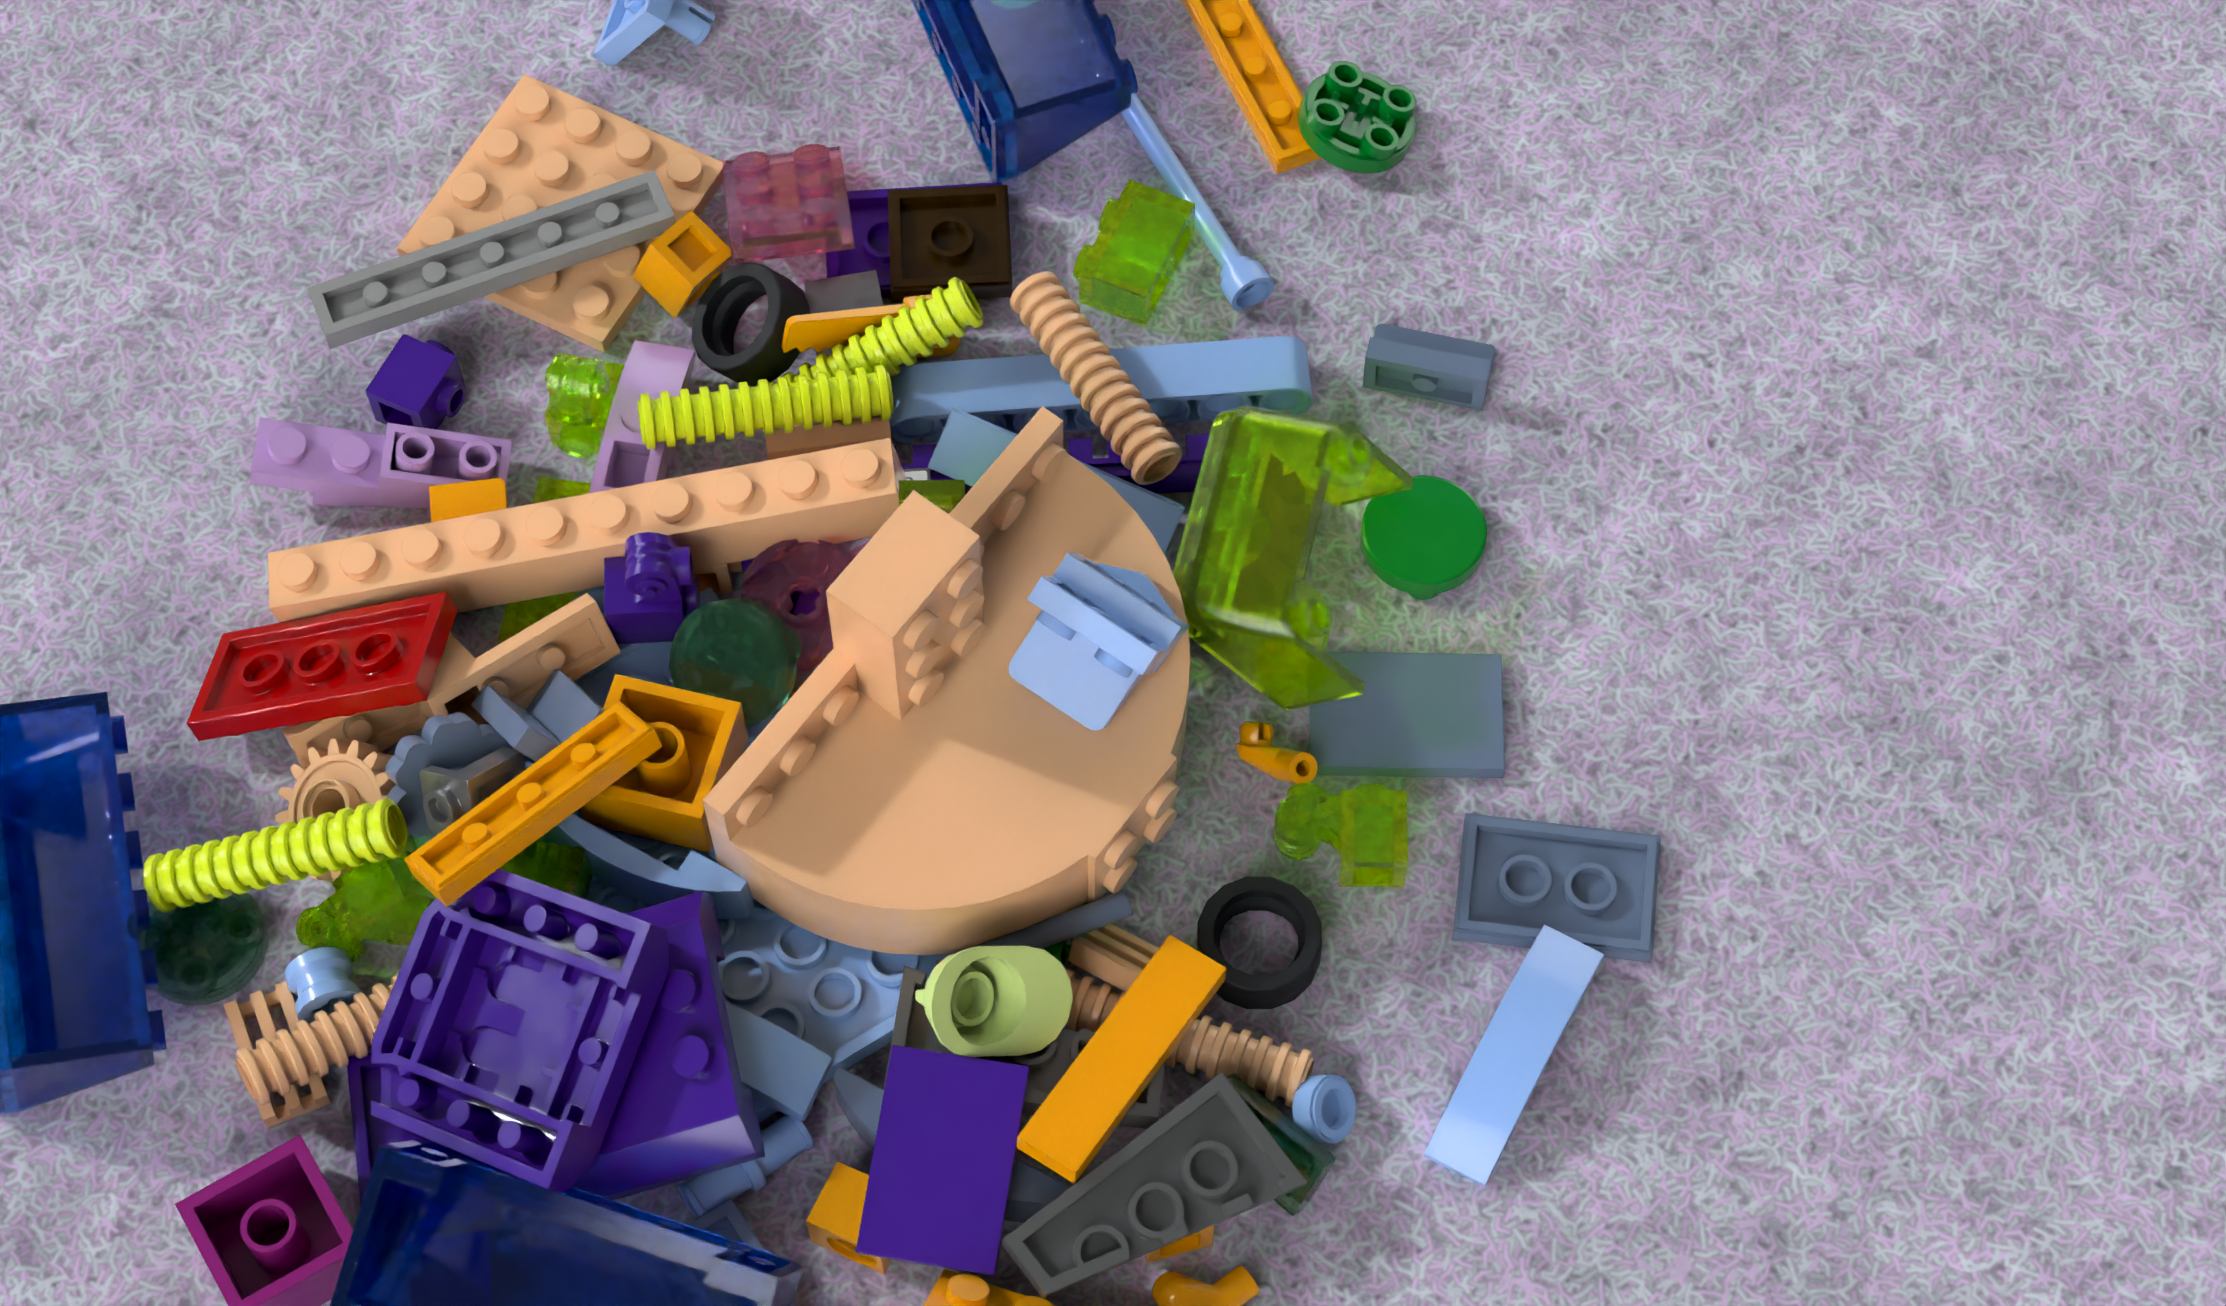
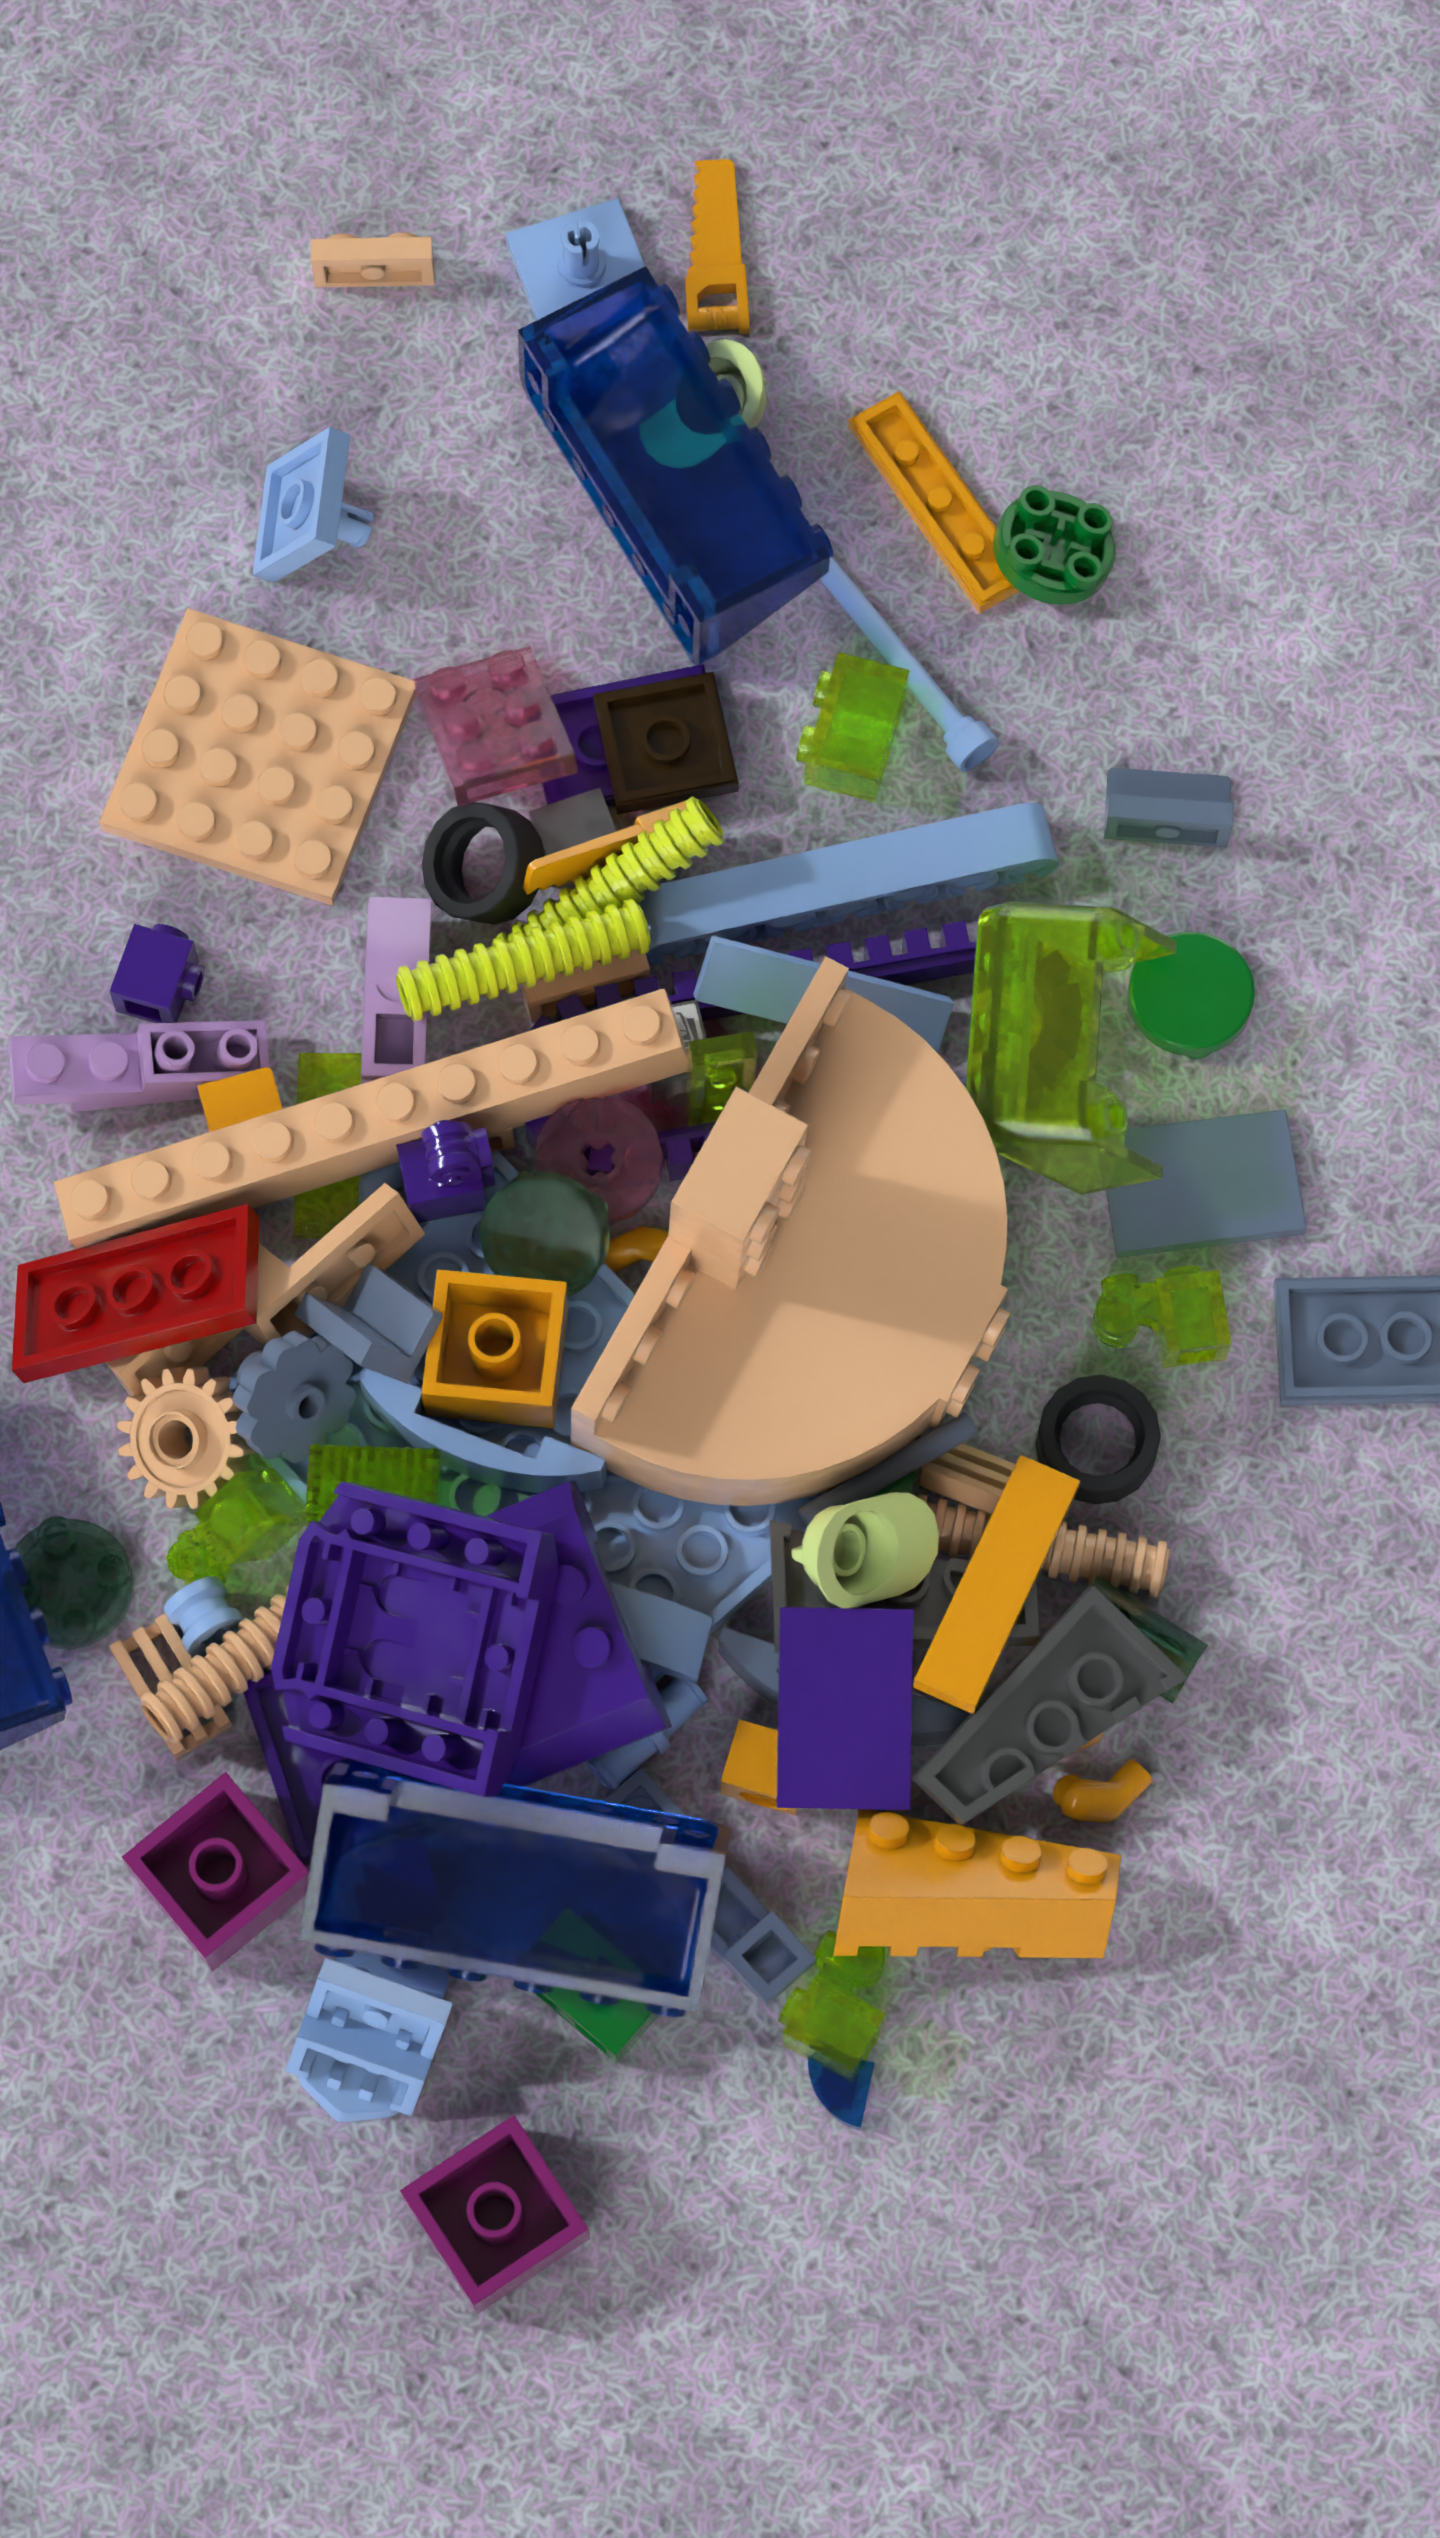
camera: 10 degrees left, 10 degrees up
(275, 855) = (139, 1498): neon yellow piece -> none
(454, 793) = (327, 1418): flat silver bracket -> none
(491, 259) = (207, 828): light grey plate -> none
(532, 803) = (390, 1418): light orange tile -> none
(579, 402) = (331, 972): clear neon green brick -> none
(682, 264) = (401, 806): light orange brick -> none
(1094, 638) = (916, 1184): light blue piece -> none
(1096, 378) = (845, 879): light nougat piece -> none
(1278, 762) = (1080, 1249): light orange arm -> none
(1324, 1108) = (1187, 1595): light blue tile -> none
(1513, 1055) = (1359, 1515): light blue slope -> none

